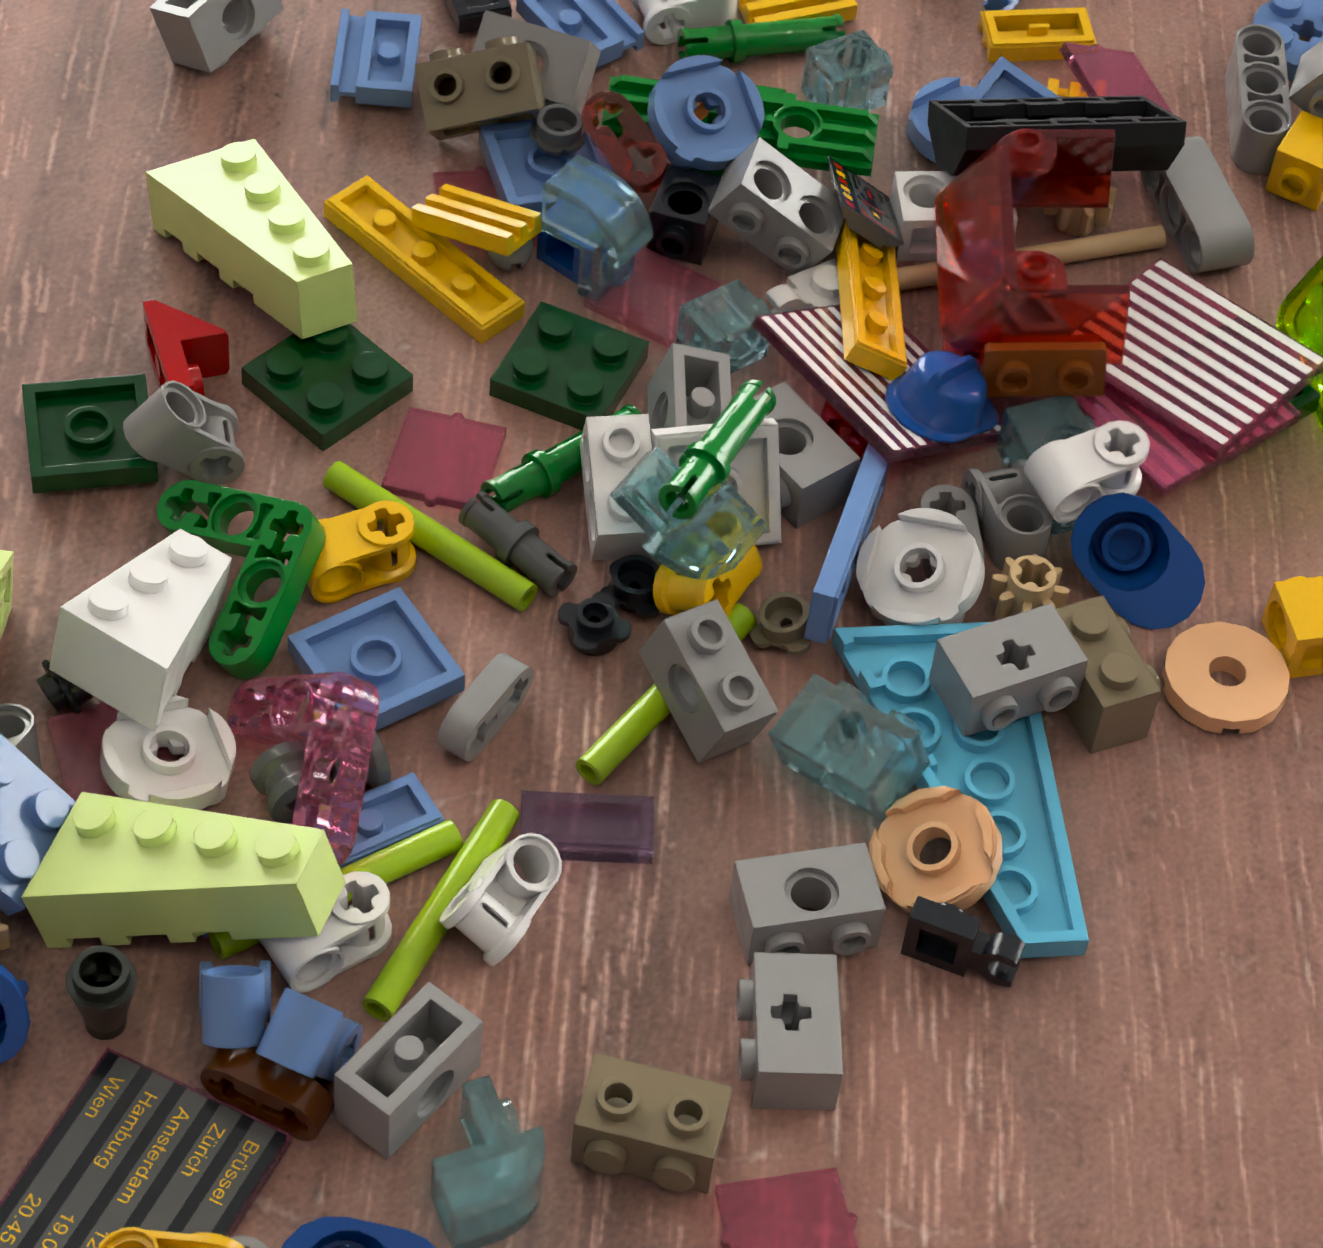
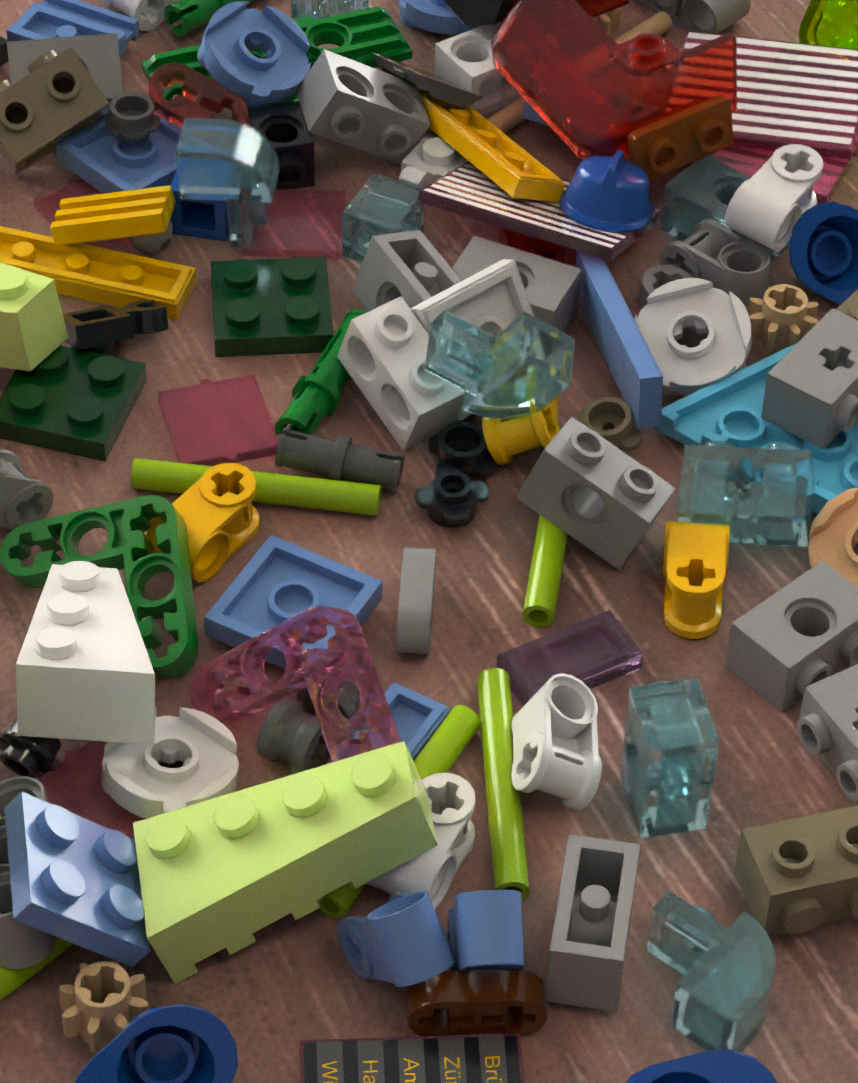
camera: 25 degrees left, 5 degrees down
(102, 989) = (274, 984): pearl dark grey cone -> none
(402, 323) = (103, 326): none -> black plate
(580, 956) = (669, 757): none -> clear light blue brick
(709, 460) = (493, 302): green pin -> none
(754, 800) = (694, 576): none -> yellow piece

